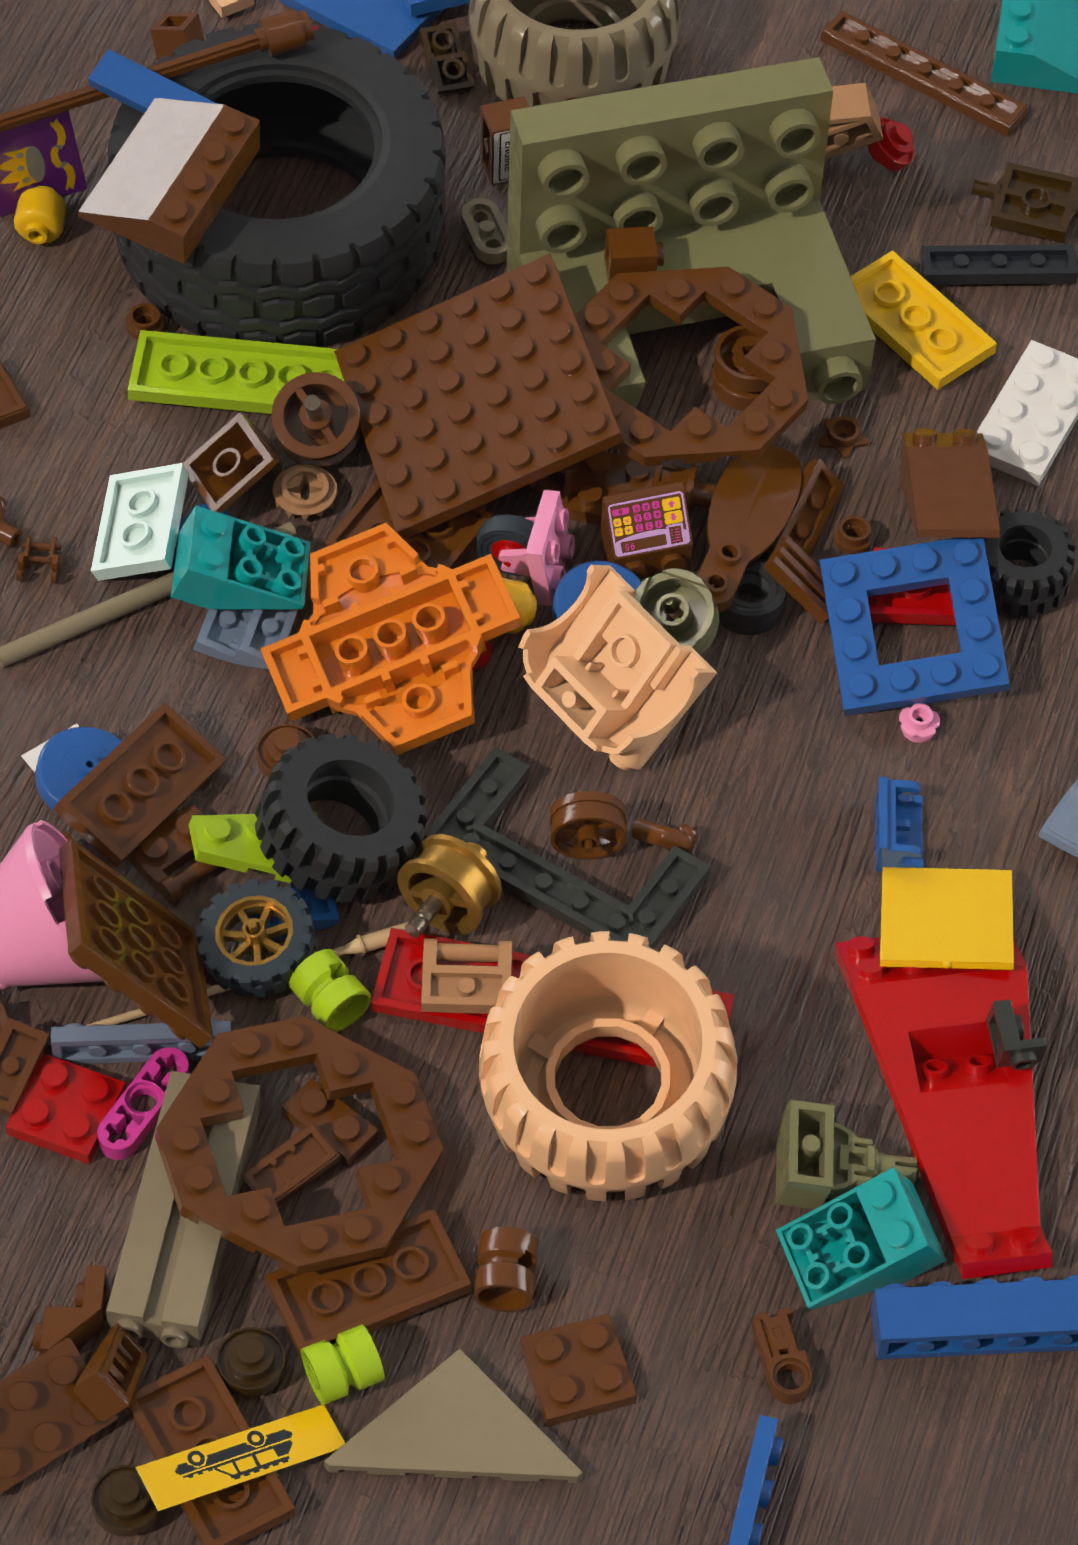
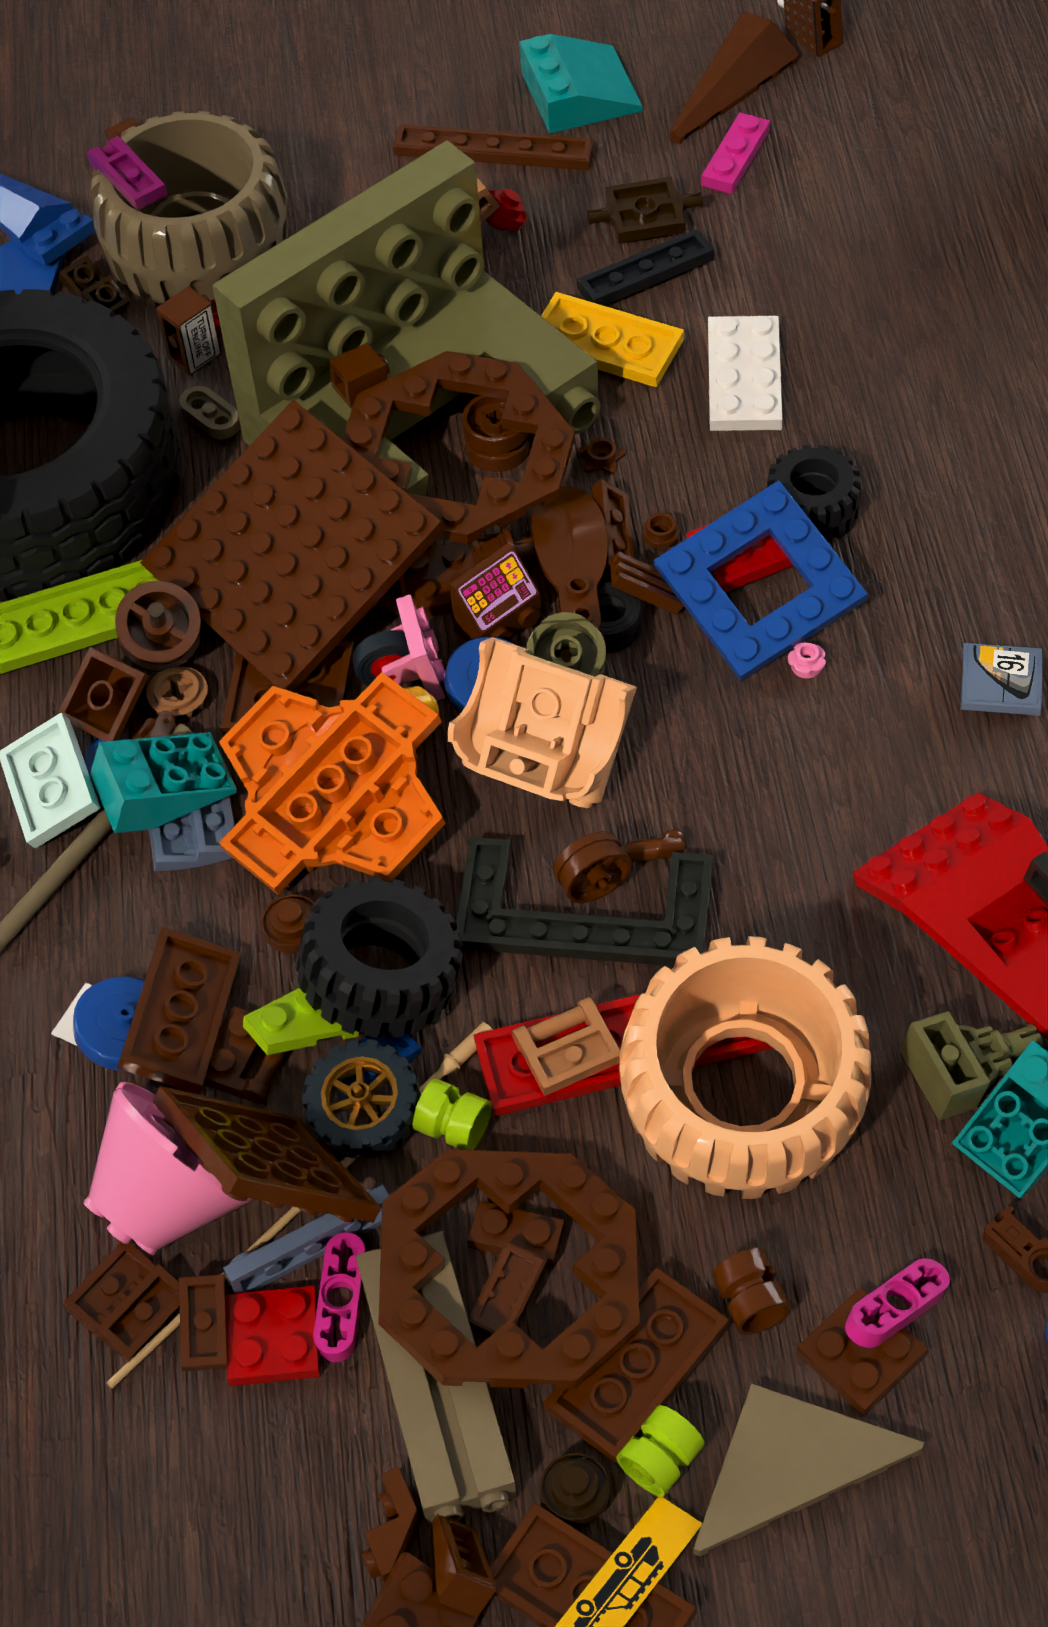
camera: 20 degrees left, 0 degrees up
(266, 515) = (156, 727): none -> reddish brown piece
(448, 885) = (505, 973): pearl gold wheel -> none
(615, 1353) = (891, 1318): none -> dark pink beam
(898, 825) = (843, 753): blue hinge -> none
(947, 918) = (936, 810): yellow piece -> none
(949, 484) = (721, 454): reddish brown slope -> none

